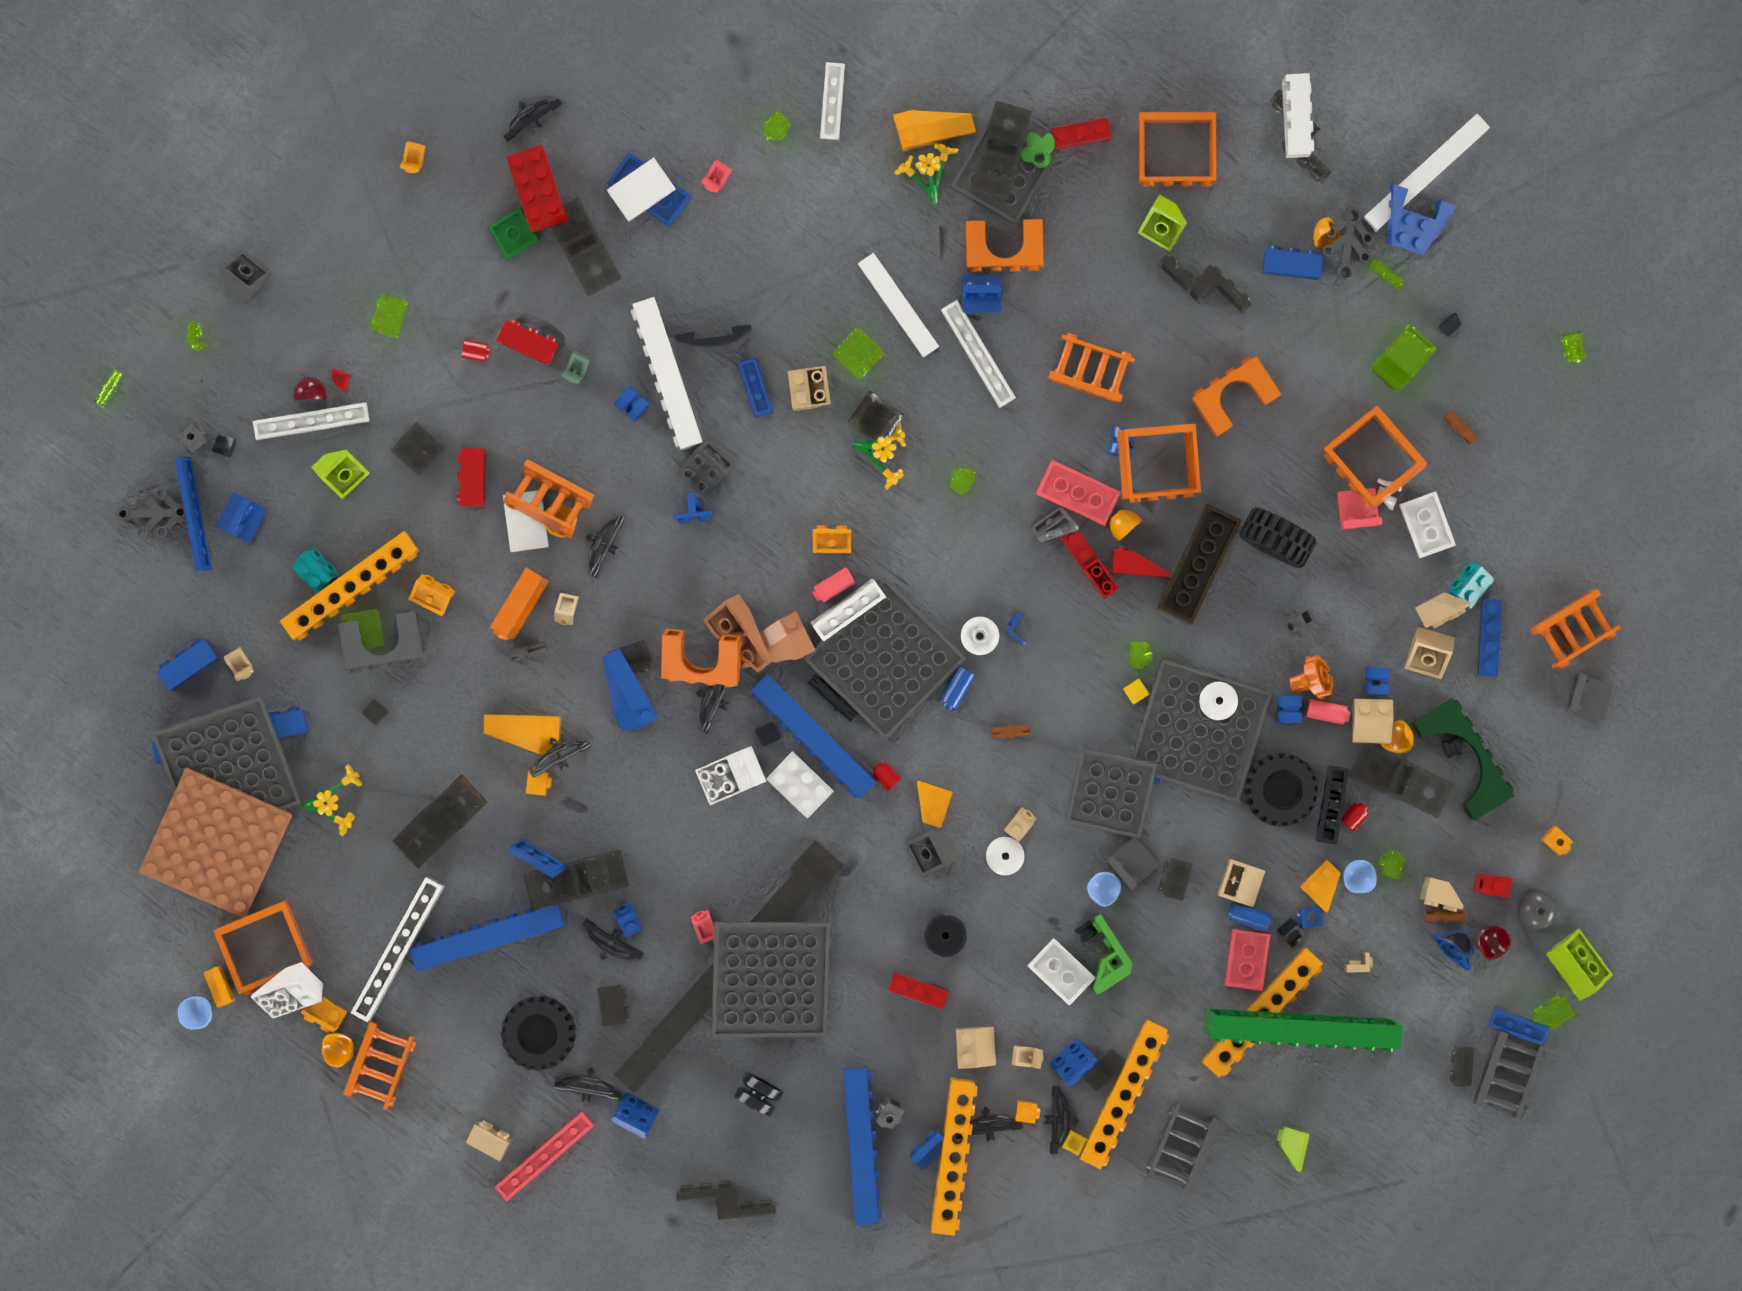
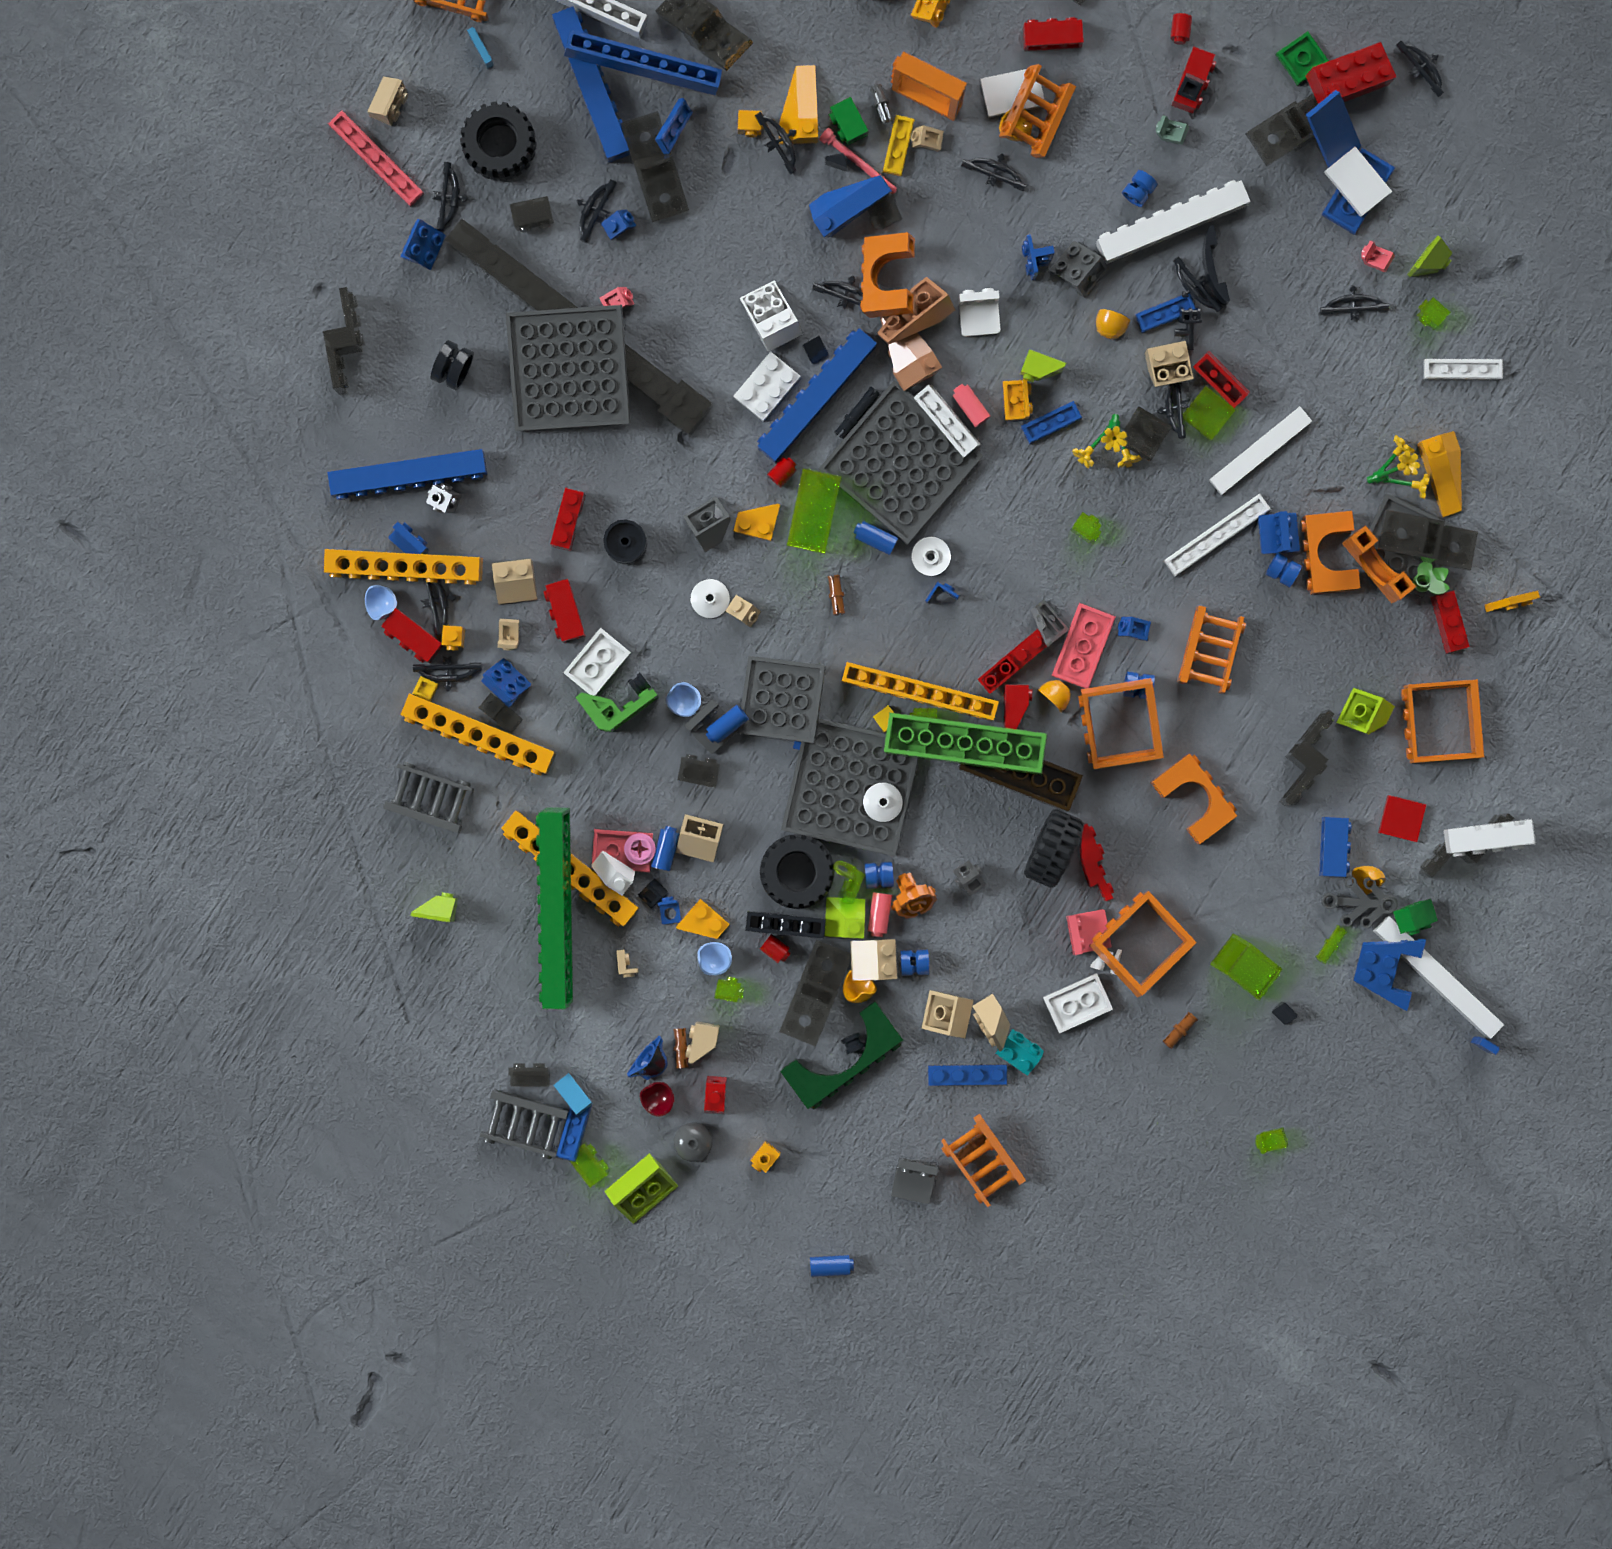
camera: 80 degrees right, 0 degrees up
(442, 1044) = (480, 47): none -> dark azure tile
(472, 884) = (643, 62): none -> blue brick
(536, 346) = (1190, 87): none -> black slope
(543, 685) = (848, 121): none -> green brick
(558, 705) = (829, 138): none -> coral piece
(570, 637) = (898, 145): none -> yellow tile
(582, 699) = (836, 161): none -> black slope
(590, 210) = (1333, 128): none -> blue tile
(723, 123) = (1432, 259): none -> lime slope
(729, 354) = (1214, 304): none -> black piece
(743, 570) = (979, 312): none -> white bracket
(763, 442) = (1111, 324): none -> light orange helmet
(764, 228) = (1328, 309): none -> black piece
(767, 365) = (1189, 331): none -> black arm
(803, 516) = (1039, 366): none -> lime slope
(826, 338) = (1221, 379): none -> red brick
(855, 507) = (1051, 422): none -> blue tile
(874, 382) = (1180, 430): none -> black piece
(928, 747) = (814, 510): none -> clear neon green brick
(987, 1181) = (379, 602): none -> light blue helmet
(1006, 213) = (1390, 583): none -> orange arch
(1008, 1000) = (564, 611): none -> red brick
(1018, 292) = (1282, 569): none -> blue wheel
(1022, 1152) = (411, 636): none -> red brick
(1064, 442) = (1134, 628): none -> blue bracket
(1065, 72) = (1512, 602): none -> light orange wing
(1113, 656) = (920, 691): none -> light orange brick
(1132, 848) = (726, 724): none -> blue brick
(1170, 616) = (965, 743): none -> bright green brick
(1254, 935) = (633, 855): none -> bright pink gear
(1268, 195) = (1402, 818): none -> red tile
(1270, 969) = (613, 872): none -> white slope
(1284, 501) = (1091, 854): none -> red slope
(1296, 737) = (851, 883): none -> clear neon green piece
(1328, 745) = (844, 919): none -> lime slope
(1366, 190) = (1415, 917): none -> green brick
(1483, 1024) = (573, 1094): none -> dark azure tile
(1496, 132) = (1485, 1045): none -> blue tile
(1666, 784) = (831, 1265): none -> blue brick

